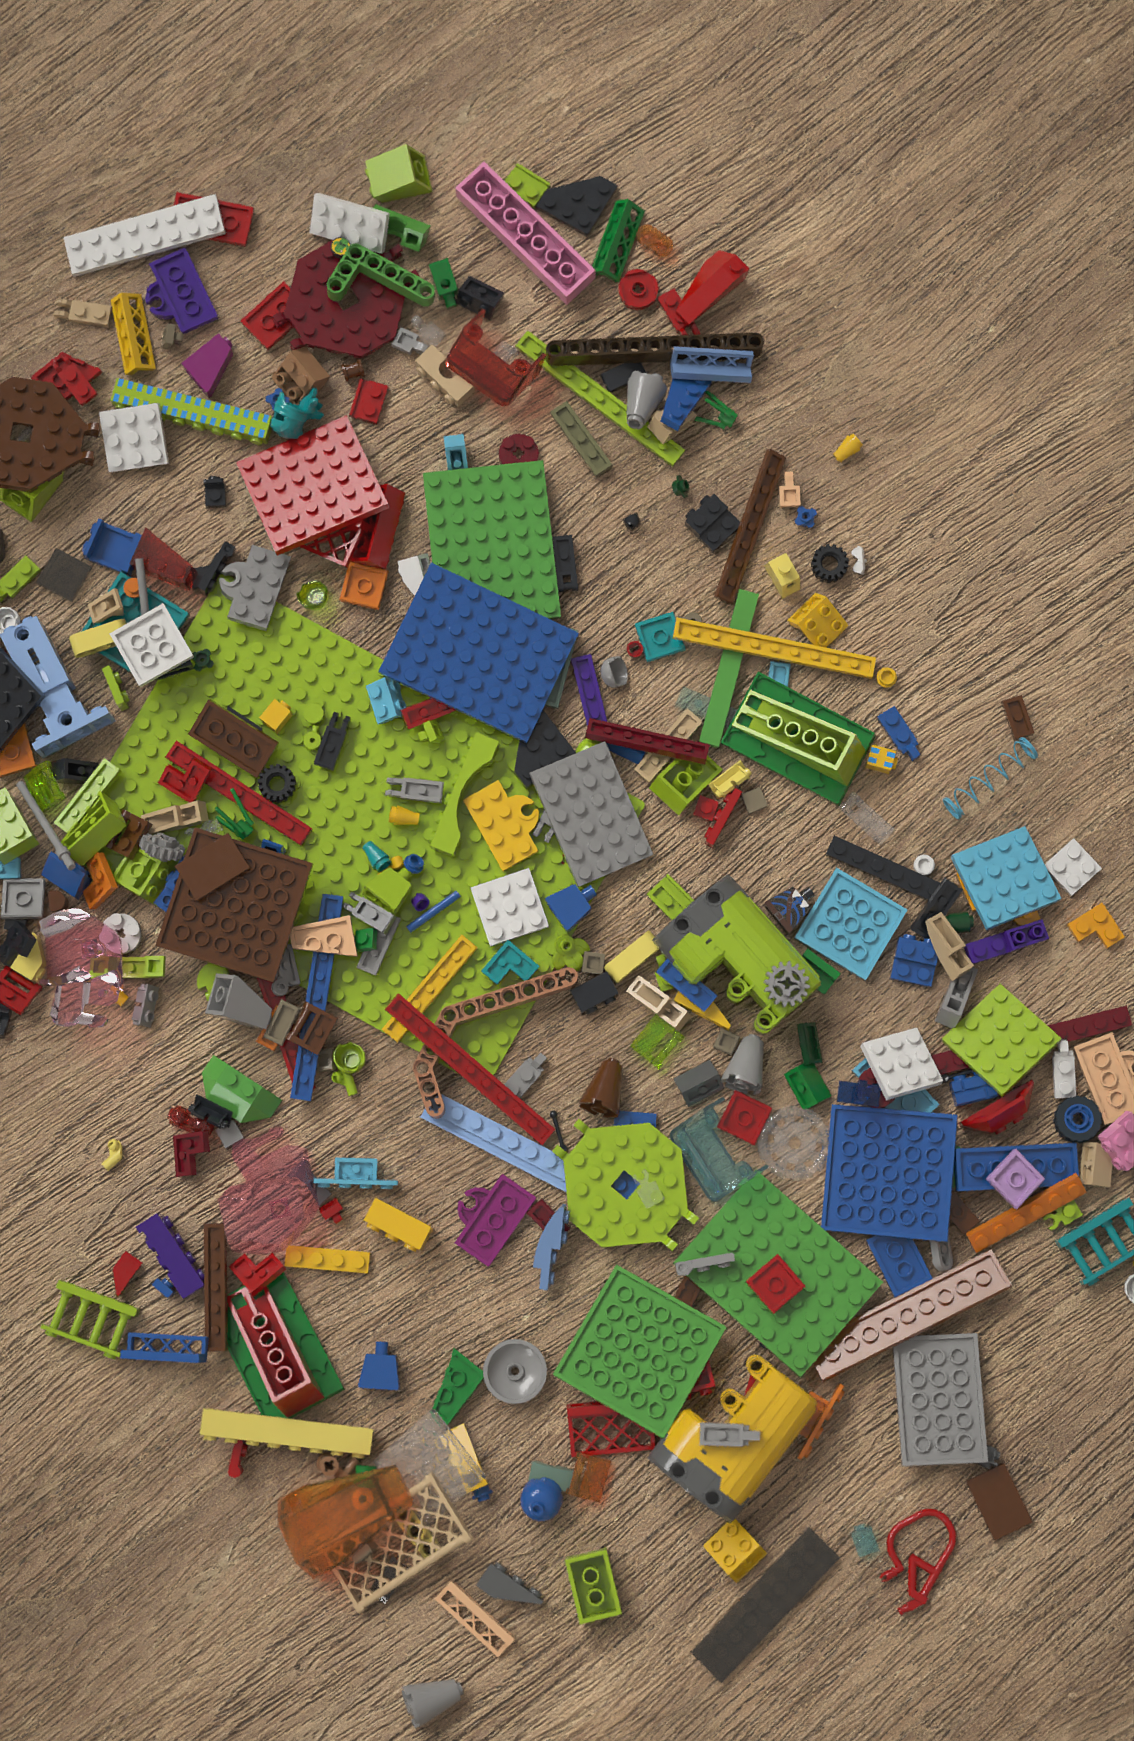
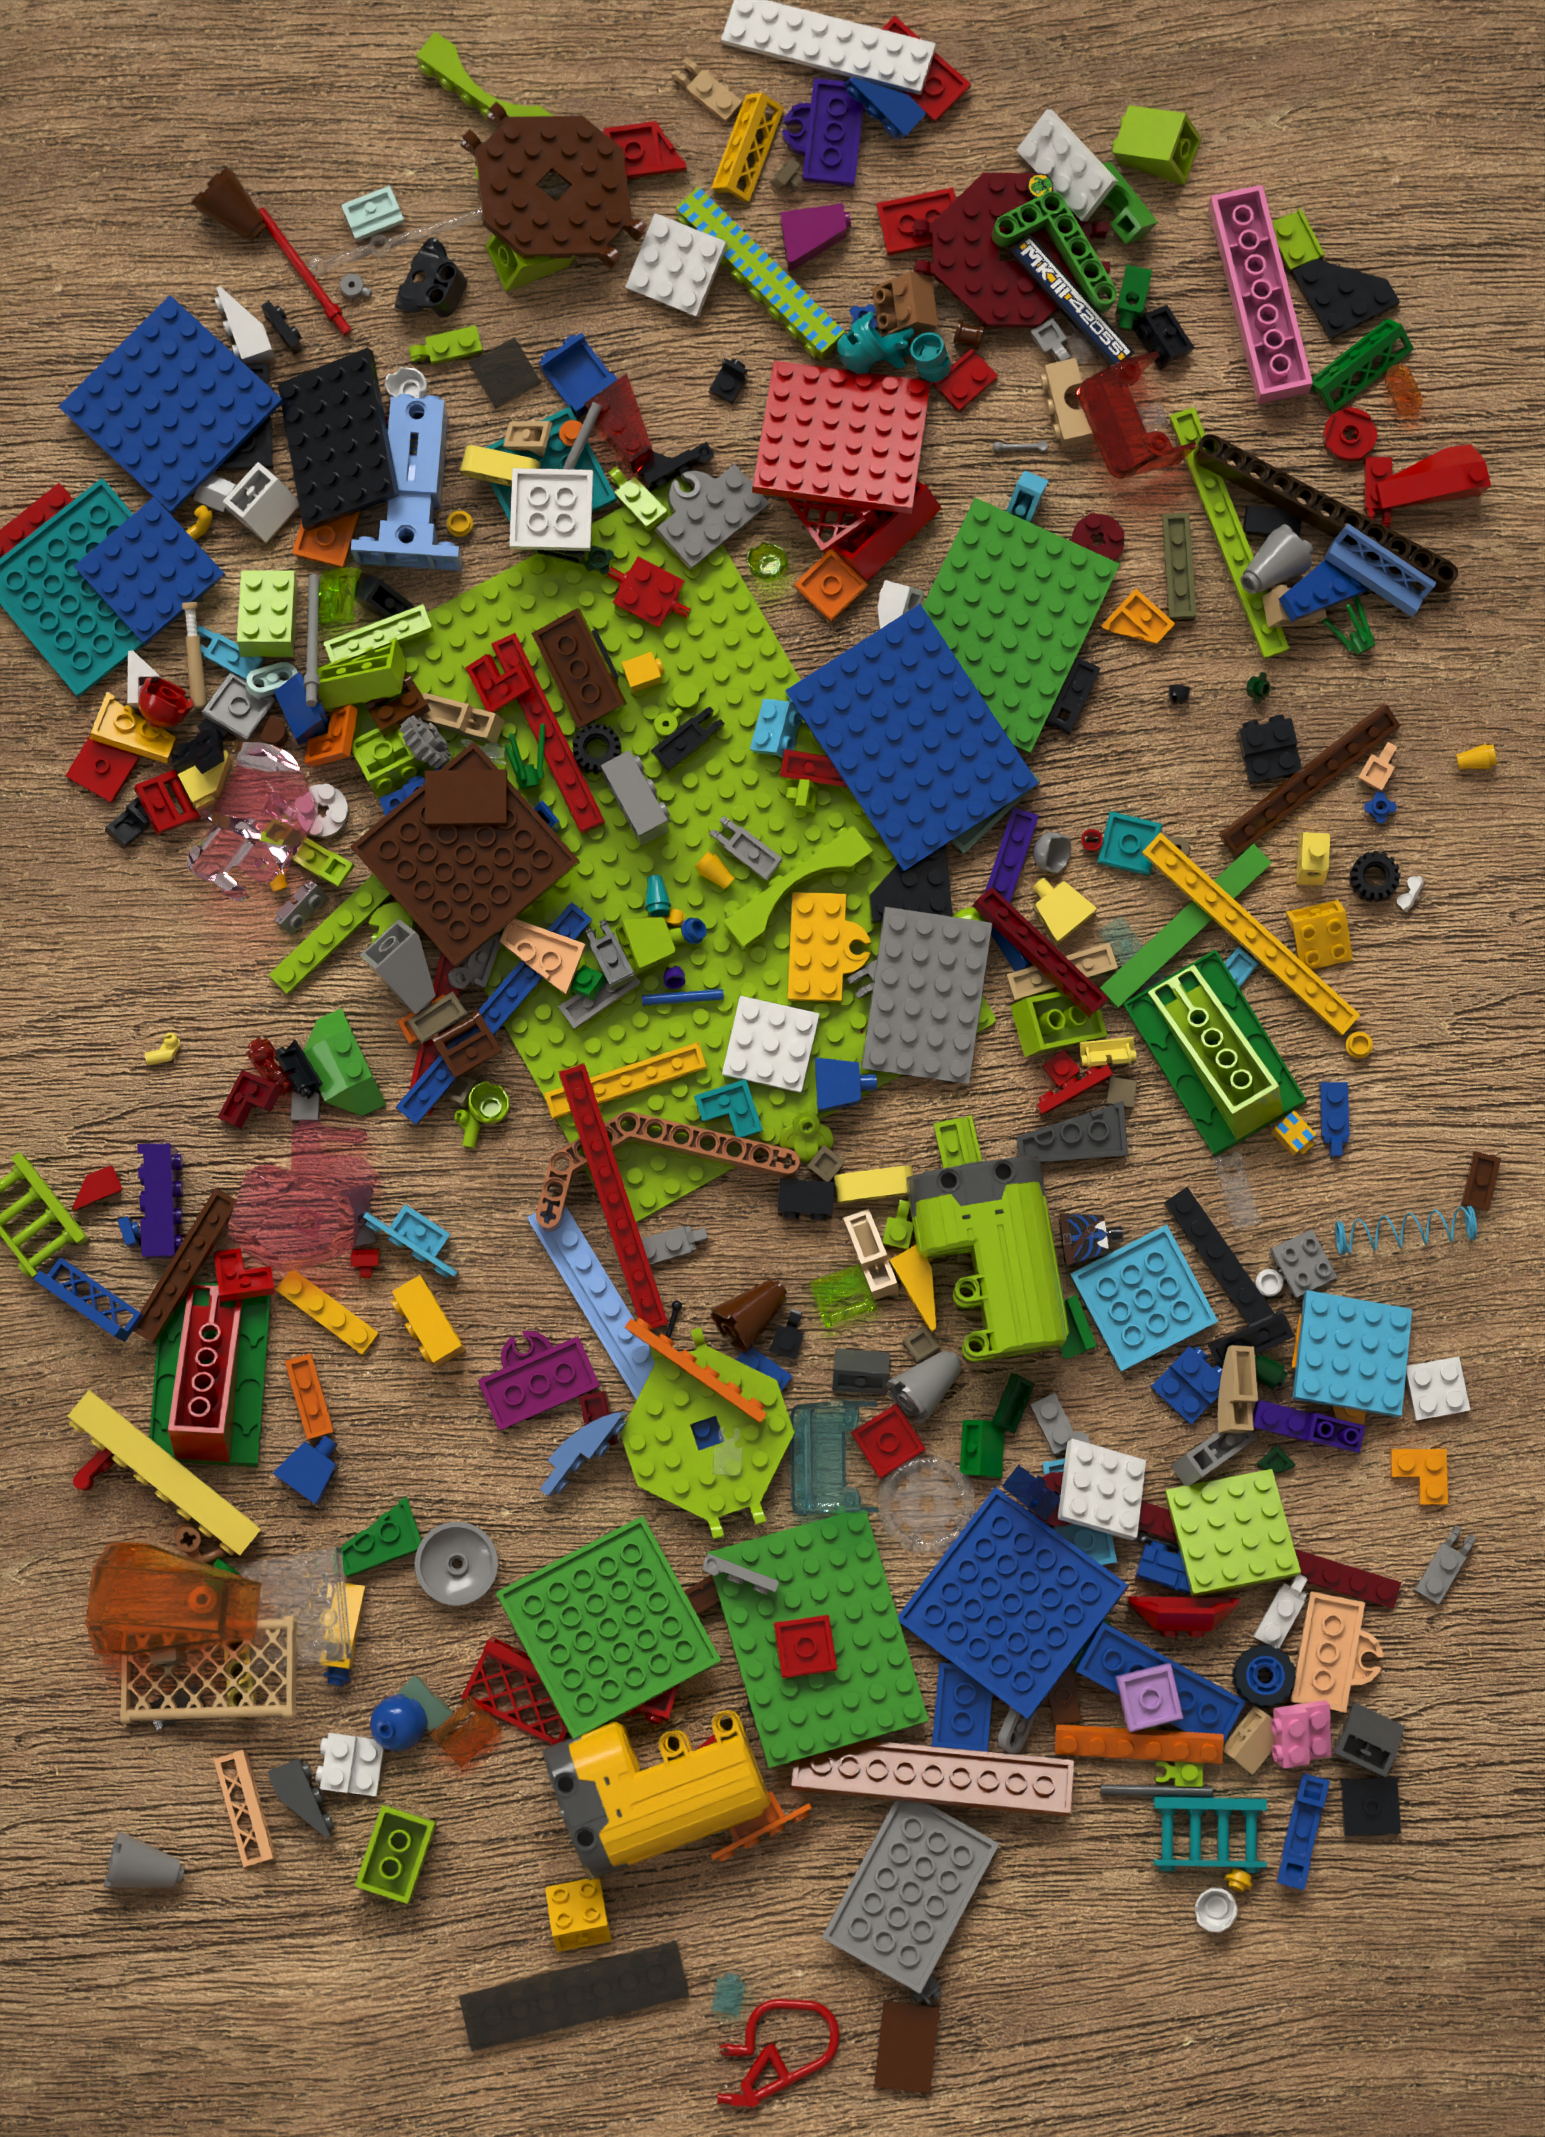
camera: 30 degrees right, 0 degrees up
(32, 868) = (269, 679): none -> light aqua plate
(75, 381) = (649, 161): red hinge -> none
(95, 691) = (459, 523): none -> yellow plate
(114, 681) = (486, 525): lime plate -> none
(176, 1011) = (330, 934): none -> lime plate
(203, 605) = (637, 500): none -> lime plate
(212, 253) = (892, 108): none -> blue slope
(248, 661) = (648, 592): none -> red plate
(323, 799) = (636, 797): none -> light grey brick
(337, 399) = (930, 357): none -> teal wheel
(350, 1322) = (309, 1396): none -> orange plate
(406, 309) = (1070, 301): none -> tile
(444, 414) = (1041, 446): none -> light grey hinge
(526, 1546) = (350, 1764): none -> white plate
(577, 488) = (1139, 619): none -> light orange wing
(603, 1148) = (687, 1362): none -> orange plate
(638, 1092) = (787, 1339): none -> black plate
(642, 705) = (1061, 909): none -> light yellow torso
(697, 994) = (919, 1269): blue plate -> none
(726, 1434) = (644, 1776): light grey hinge -> none
(746, 845) = (1082, 1137): none -> dark grey wing
(785, 993) = (1012, 1310): light grey gear -> none
(844, 1040) = (1055, 1423): none -> light grey hinge
(938, 839) = (1303, 1263): none -> light grey hinge
(999, 976) = (1276, 1460): none -> dark green tile
(1054, 1236) = (1155, 1790): none -> dark grey bar

